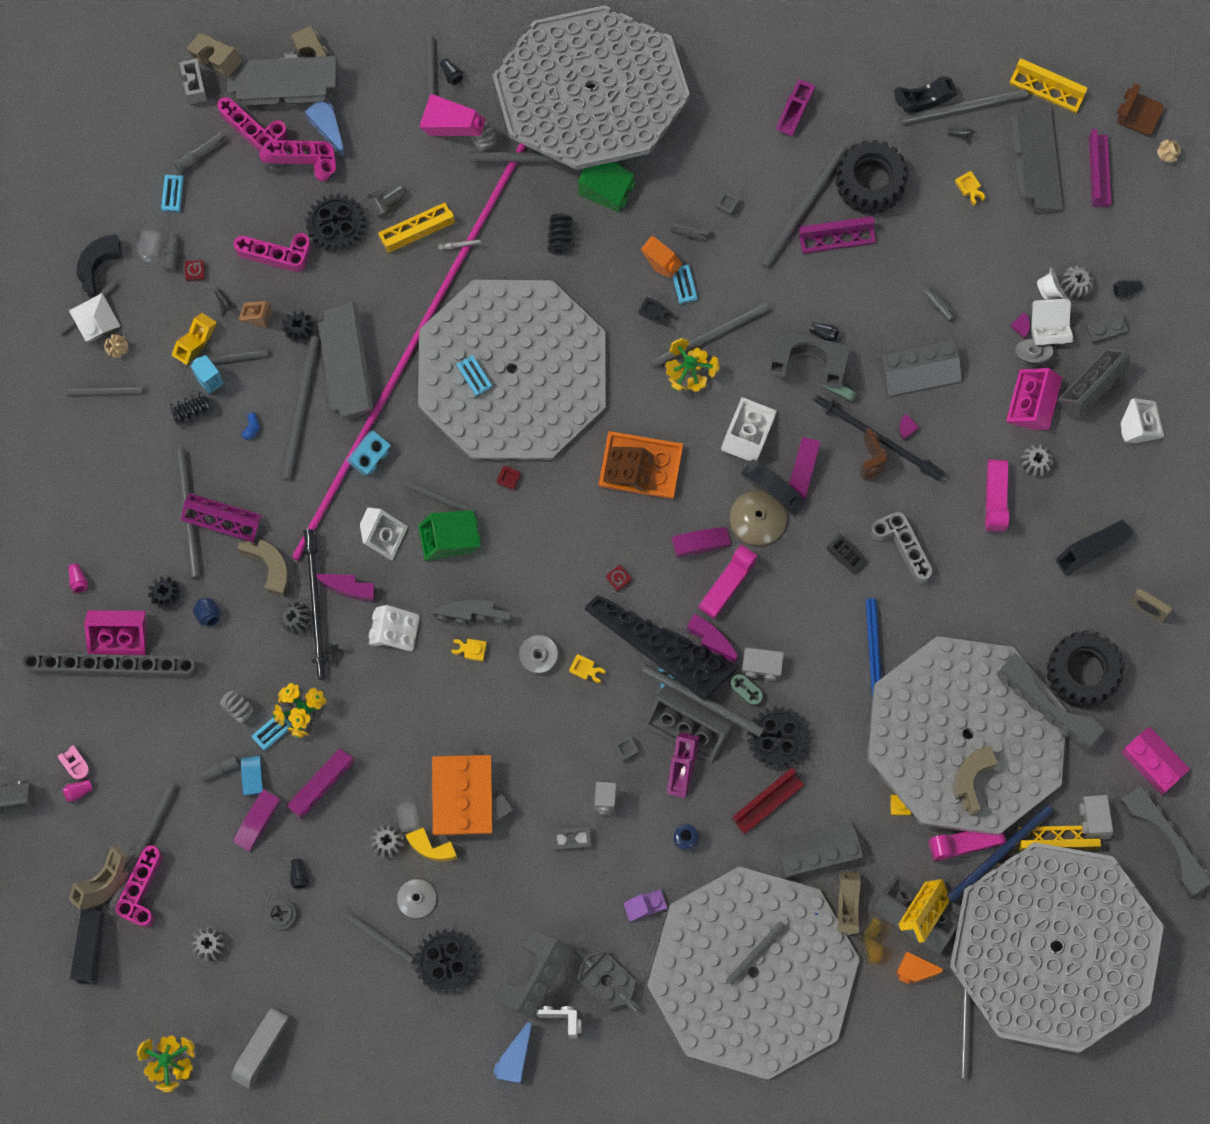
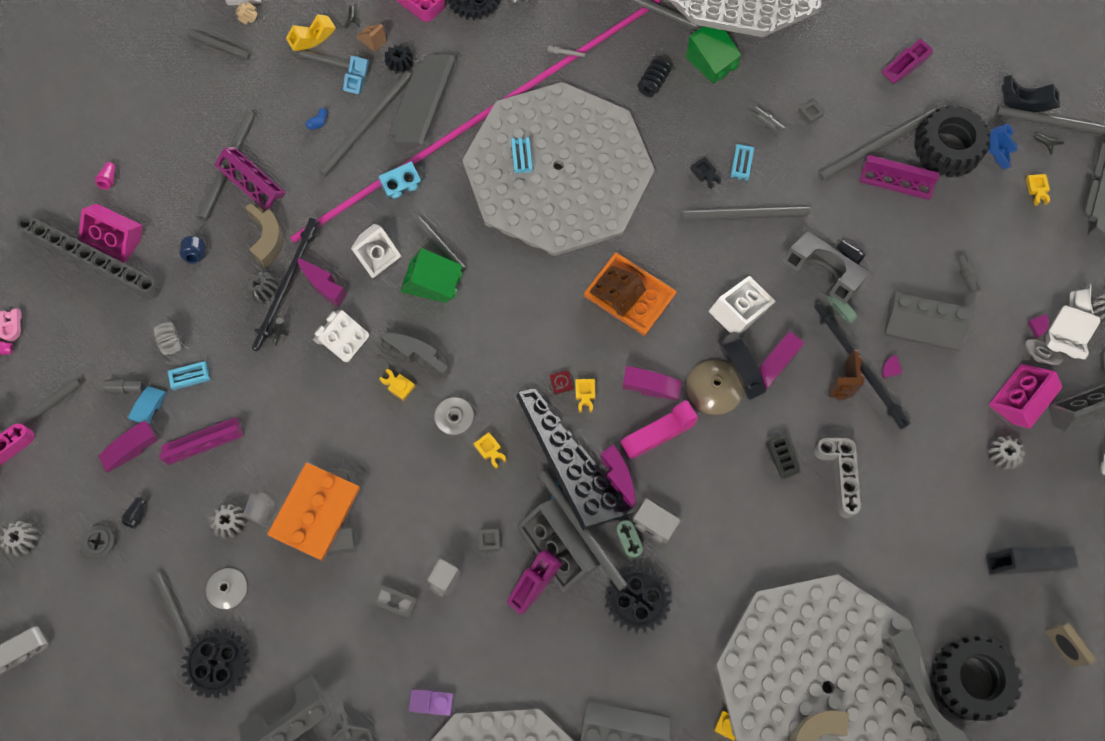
camera: 25 degrees right, 5 degrees down
(171, 588) = (167, 218): black gear -> none
(190, 408) = (276, 84): black piece -> none
(206, 374) = (302, 61): medium azure brick -> none
(264, 362) = (356, 75): none -> dark azure slope
(299, 715) = (210, 372): yellow plant -> none
(417, 231) = (537, 26): yellow fence -> none
(421, 844) = (257, 540): yellow brick -> none
(508, 478) = (509, 254): dark red tile -> none
(645, 576) = (585, 392): none -> yellow plate
(661, 257) = (732, 128): orange slope -> none
(688, 831) = (506, 648): dark blue head -> none
(693, 360) = (718, 224): yellow plant -> none
(767, 801) = (598, 657): dark red fence -> none
(873, 641) = (772, 551): blue axle -> none
(919, 159) = (1002, 145): none -> blue slope
(996, 496) = (946, 482): dark pink beam -> none

